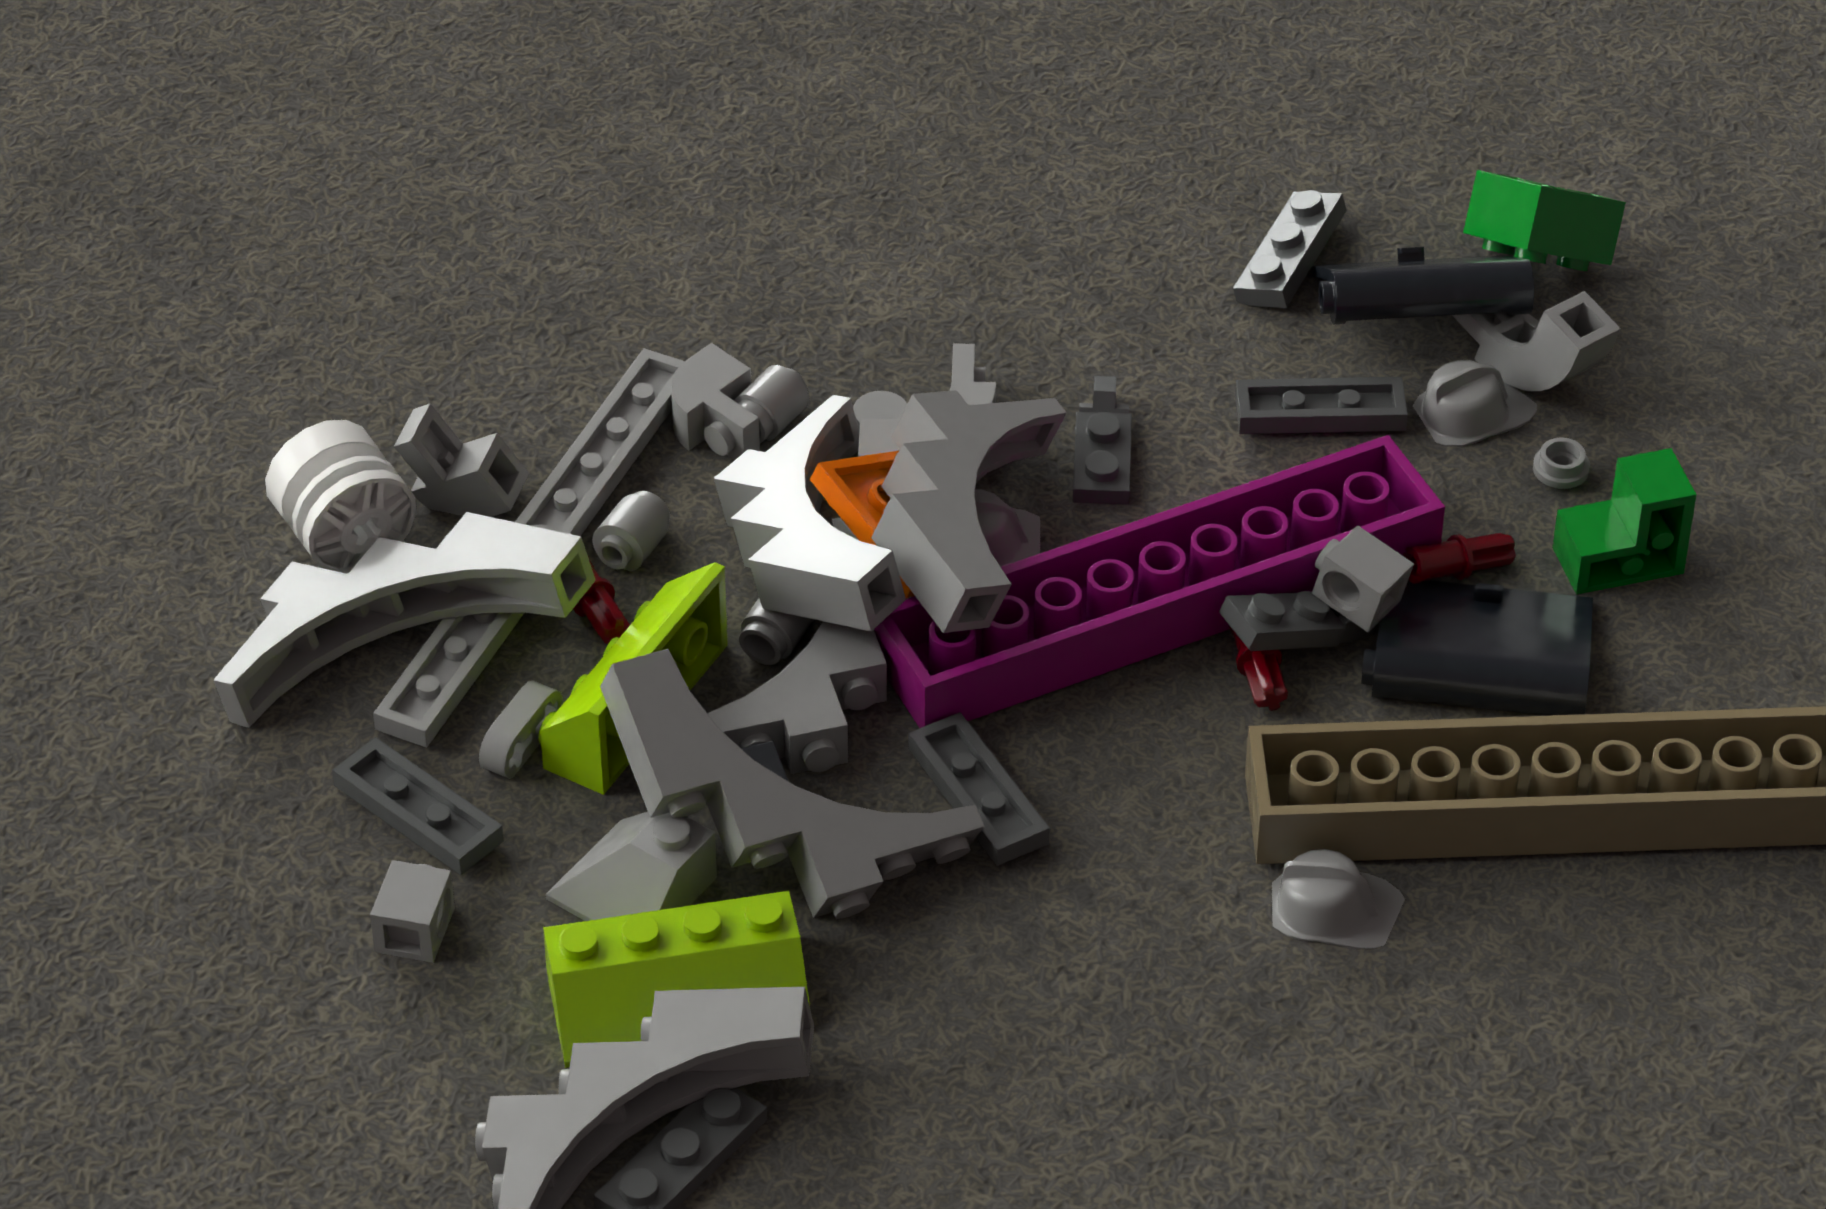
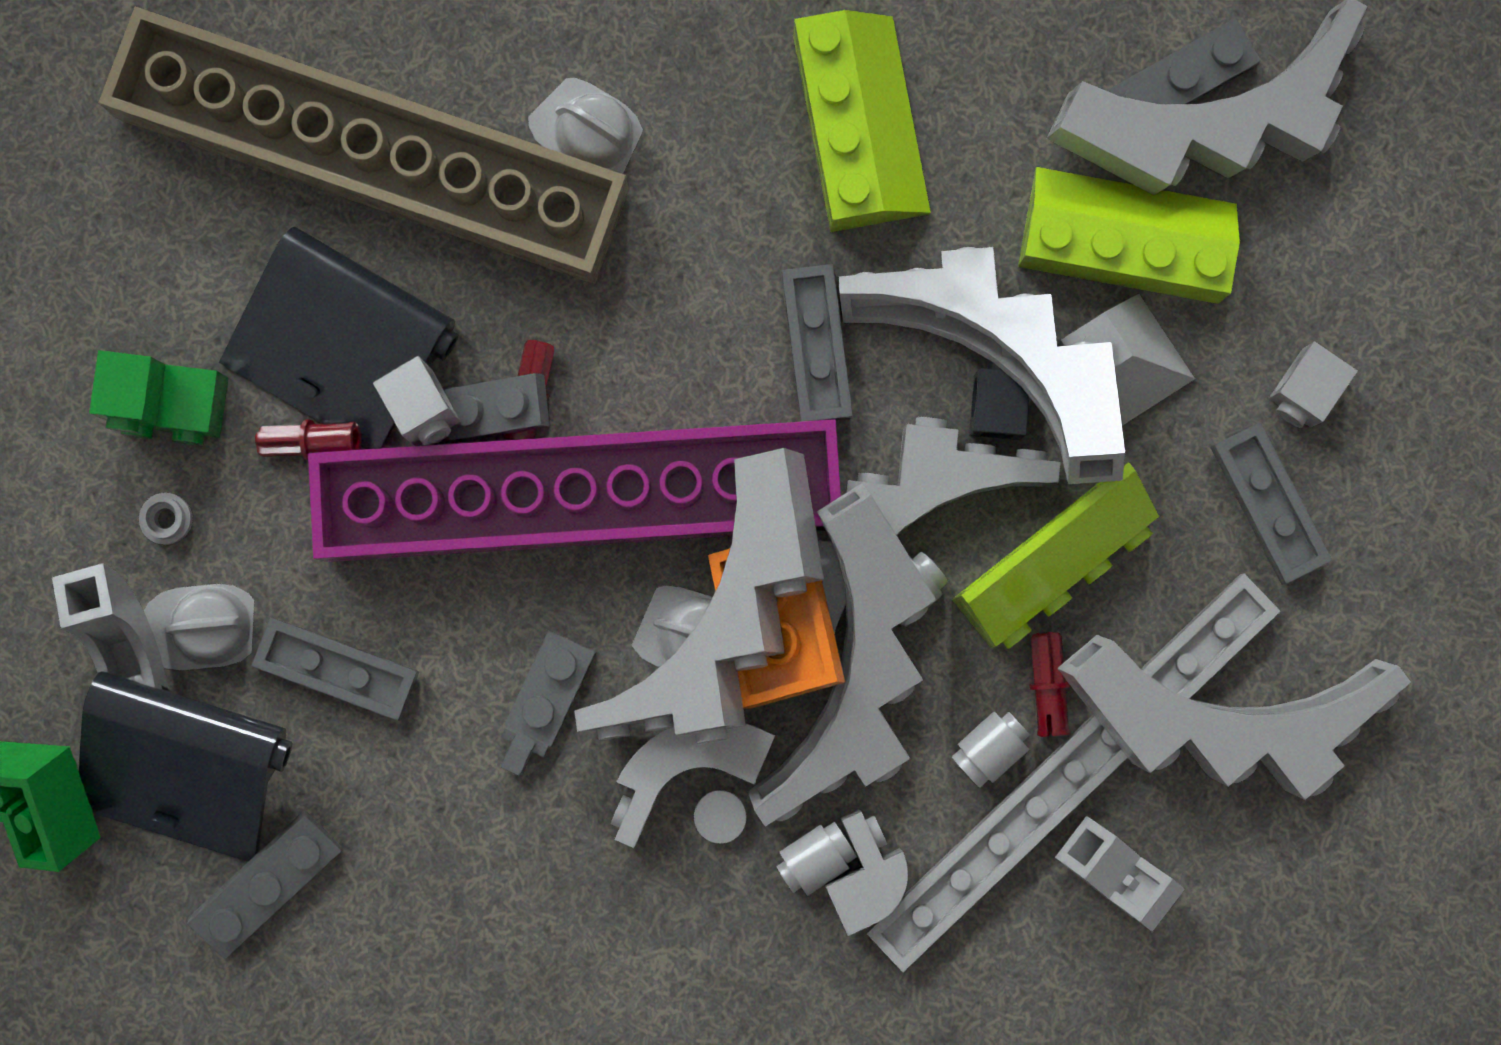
camera: 160 degrees left, 40 degrees up
(338, 493) = (1240, 864): white wheel -> none
(516, 729) = (1162, 552): light grey beam -> none
(1036, 987) = (860, 119): none -> lime slope

